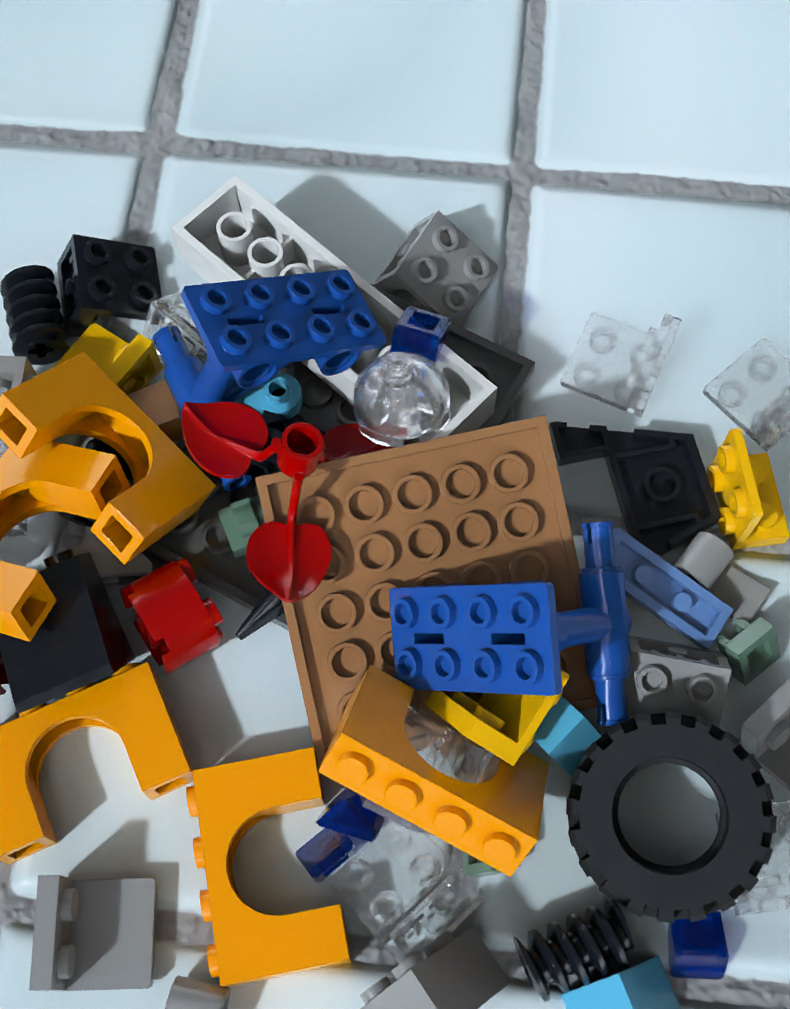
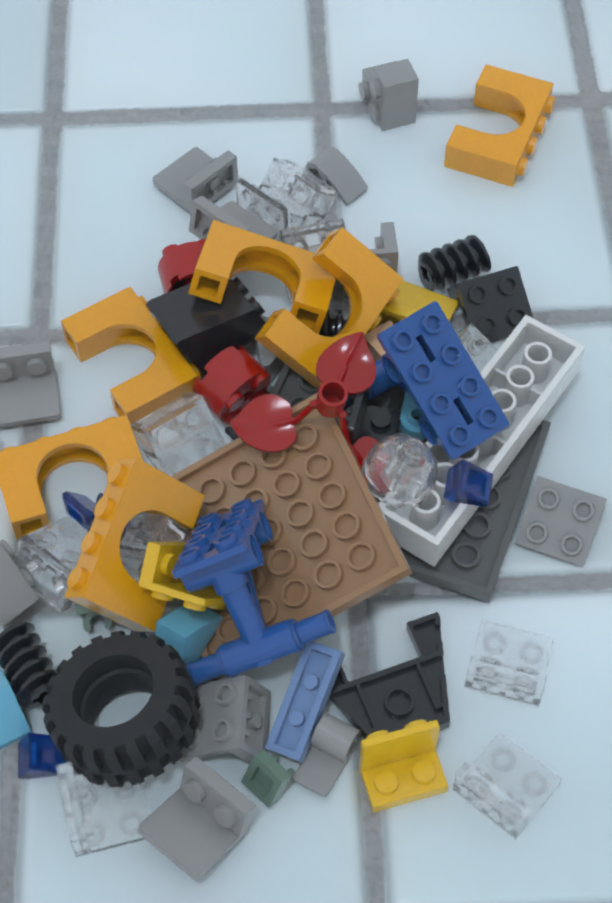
camera: 80 degrees right, 10 degrees down
(235, 703) = (178, 434): none -> clear slope

